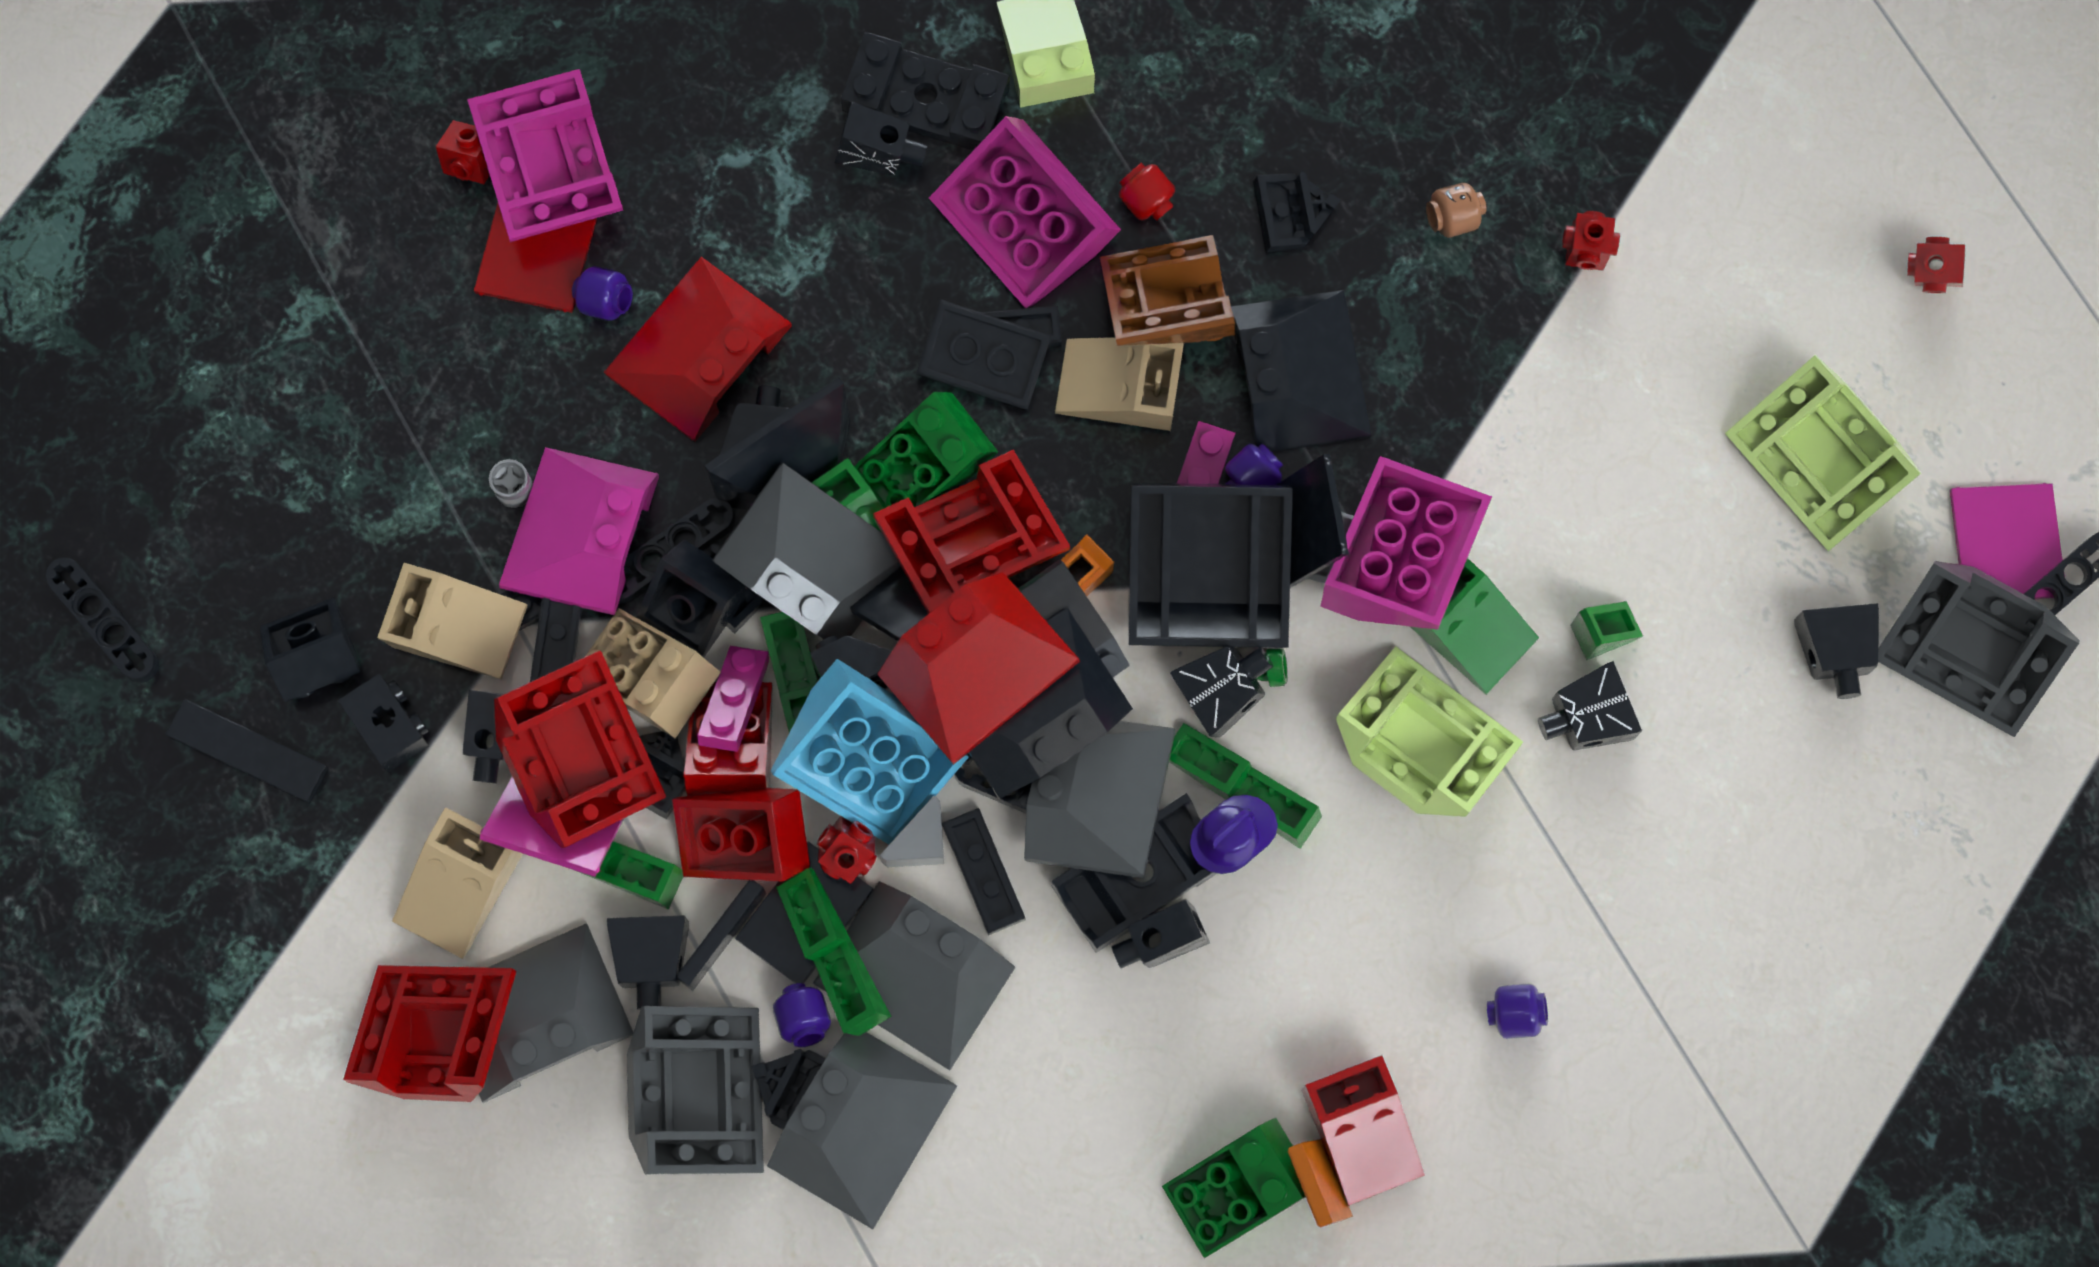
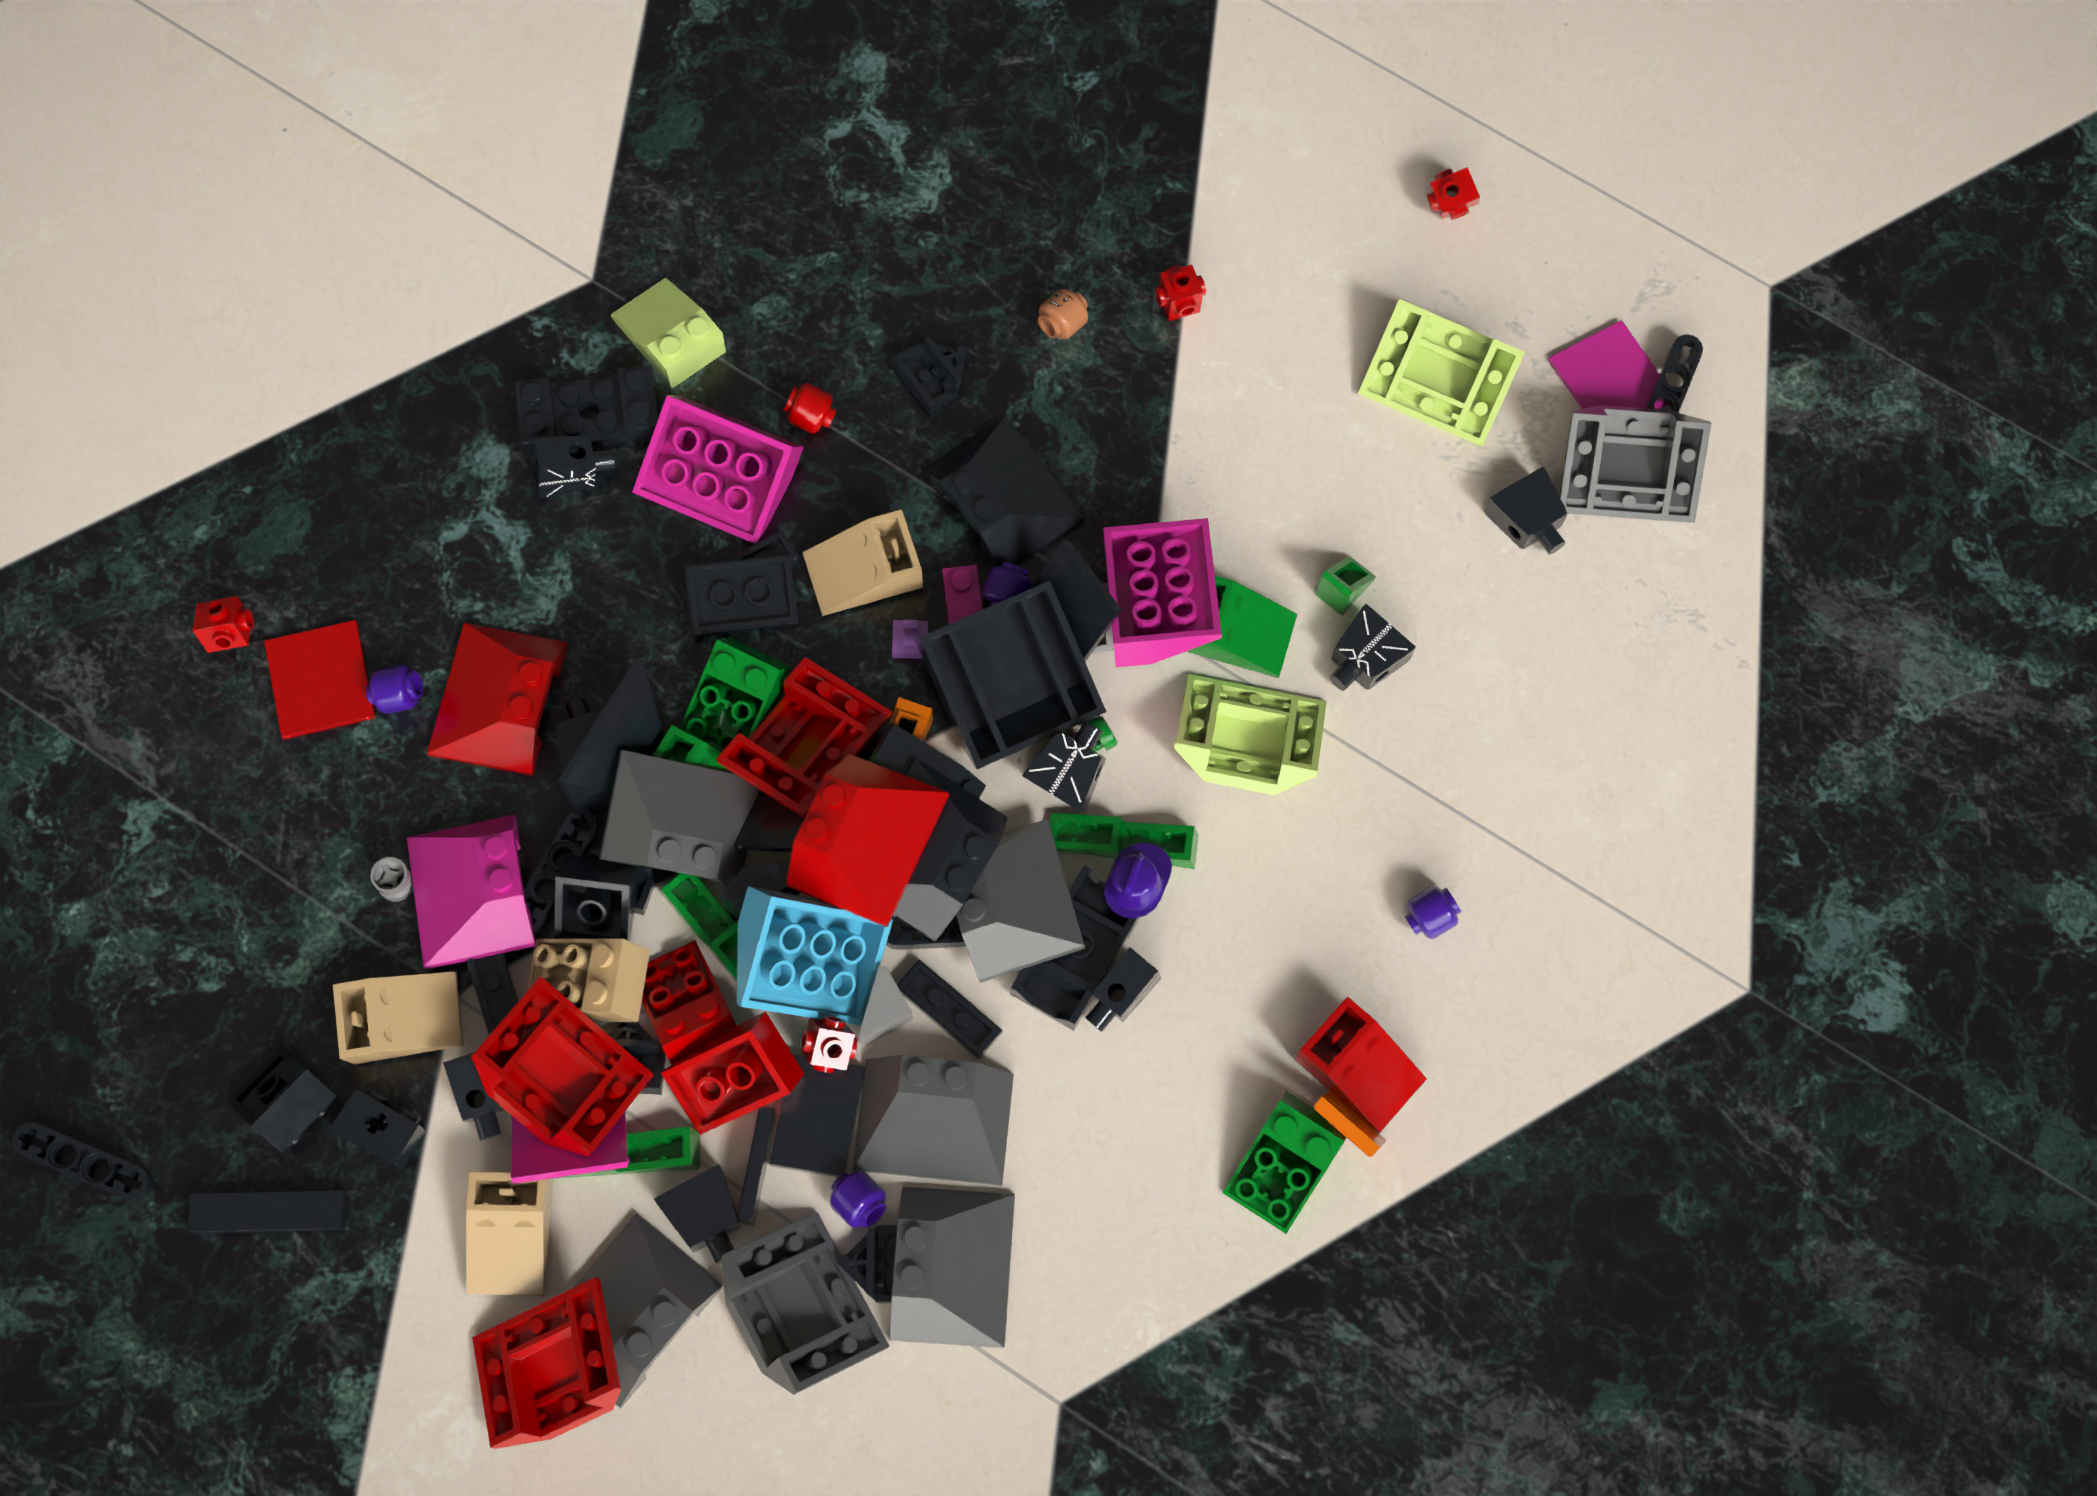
camera: 30 degrees left, 5 degrees down
(544, 155) = (290, 596): dark pink slope -> none
(733, 698) = (671, 966): dark pink plate -> none
(835, 956) = (859, 1134): green slope -> none
(1128, 471) = (903, 638): none -> medium lavender tile
(1168, 294) = (870, 477): dark orange slope -> none

